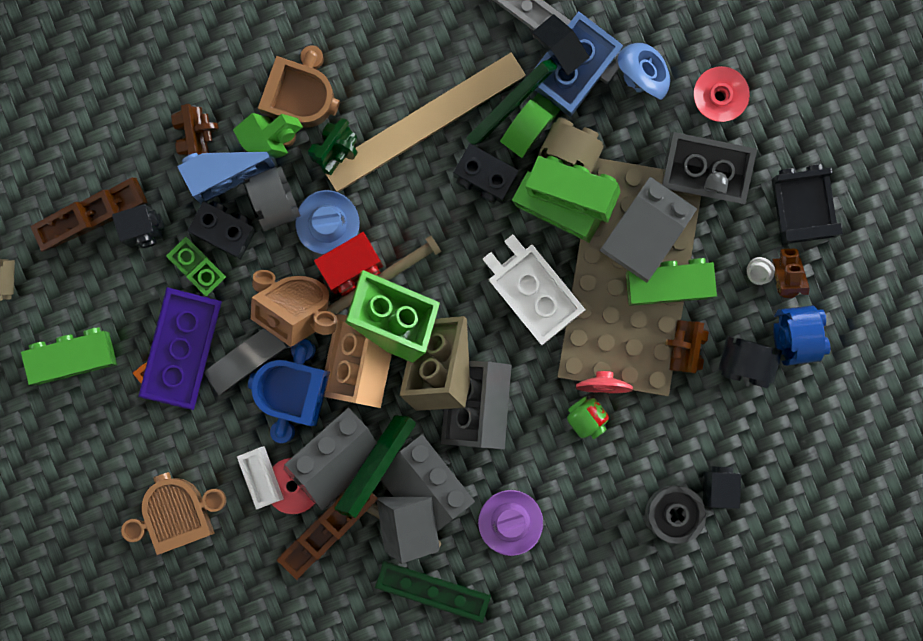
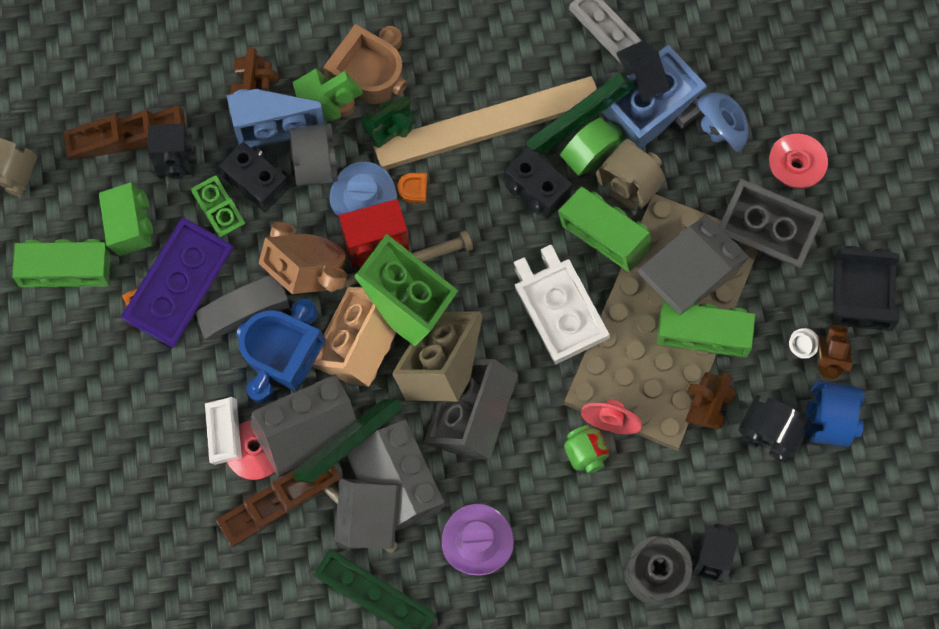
camera: 15 degrees right, 15 degrees down
(115, 301) = (125, 219): none -> bright green brick
(174, 514) = (122, 446): medium nougat piece -> none
(371, 203) = (413, 188): none -> orange tile
(573, 188) = (624, 206): bright green brick -> none
(717, 183) = (775, 237): dark grey hinge -> none

